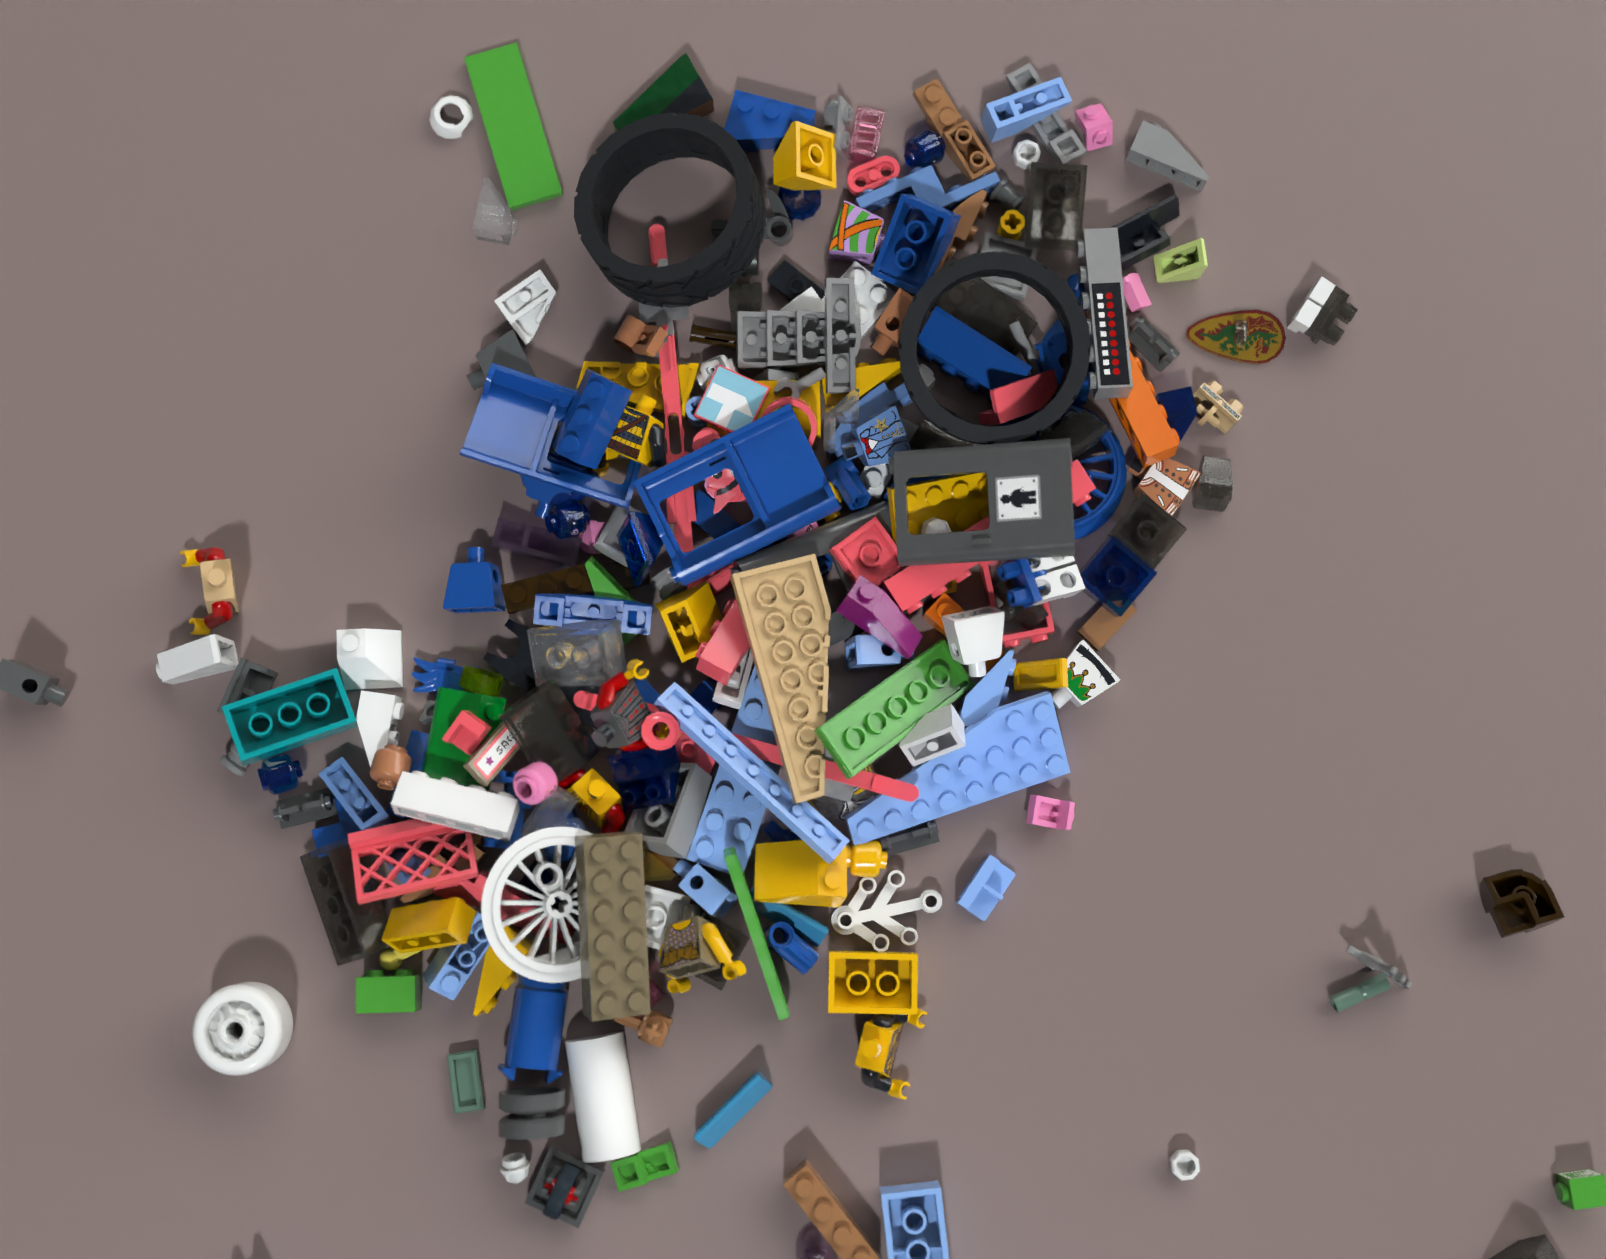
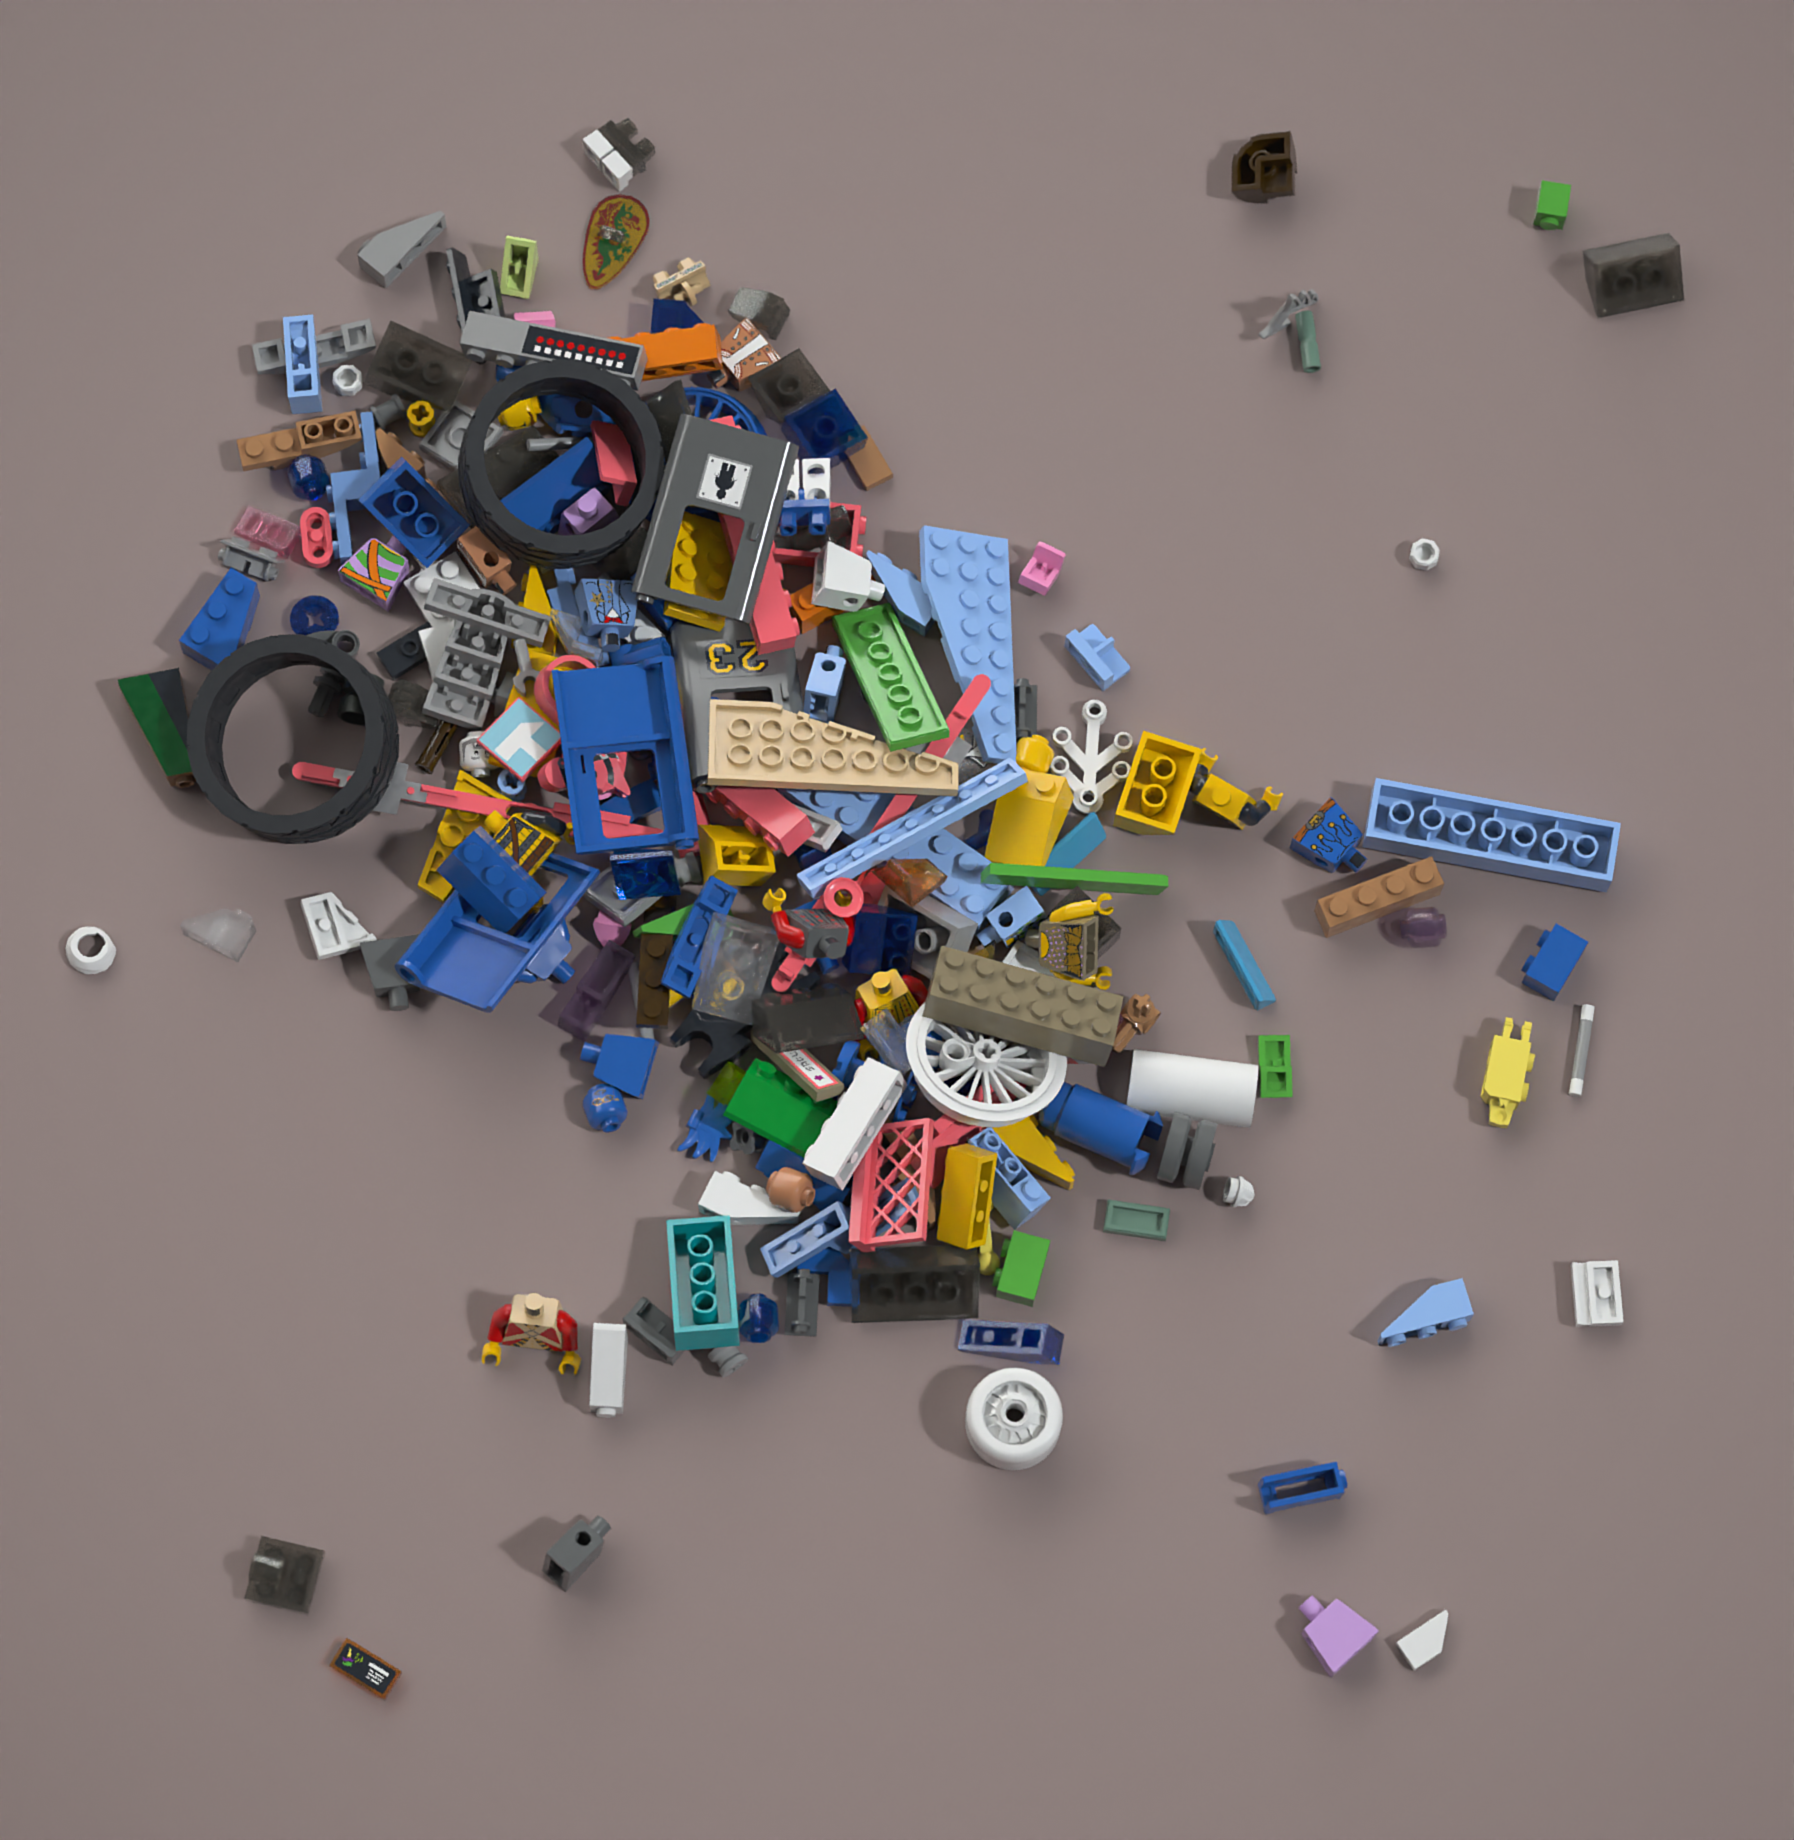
camera: 75 degrees left, 10 degrees down
(319, 1004) = (1012, 1341): none -> clear blue slope
(370, 658) = (663, 1193): white slope -> none
(429, 583) = (604, 1108): none -> blue head
(467, 732) = (781, 1092): coral panel -> none
(513, 126) = (125, 886): bright green tile -> none
(535, 783) = (857, 1035): bright pink head -> none
(564, 1186) = (1271, 1148): dark grey plate -> none
(567, 519) = (586, 941): clear blue head -> none
(640, 338) = (415, 816): nougat plate -> none
(706, 788) = (911, 878): none -> clear orange slope
(792, 948) = (1100, 855): blue piece -> none
(805, 159) = (281, 594): yellow slope -> none
(868, 553) = (726, 655): coral tile -> none
(875, 1157) = (1330, 839): none -> torso
(879, 616) = (791, 661): magenta slope -> none
(934, 736) = (931, 647): white slope -> none
(935, 525) = (719, 581): white tile -> none
(963, 396) = (587, 515): none -> lavender torso
(1040, 675) = (901, 533): yellow tile -> none
(1041, 309) = (521, 414): none -> yellow head
(1086, 677) = (913, 496): white torso -> none
(1096, 126) = (341, 303): bright pink bracket -> none
(1151, 343) = (597, 321): dark grey hinge -> none

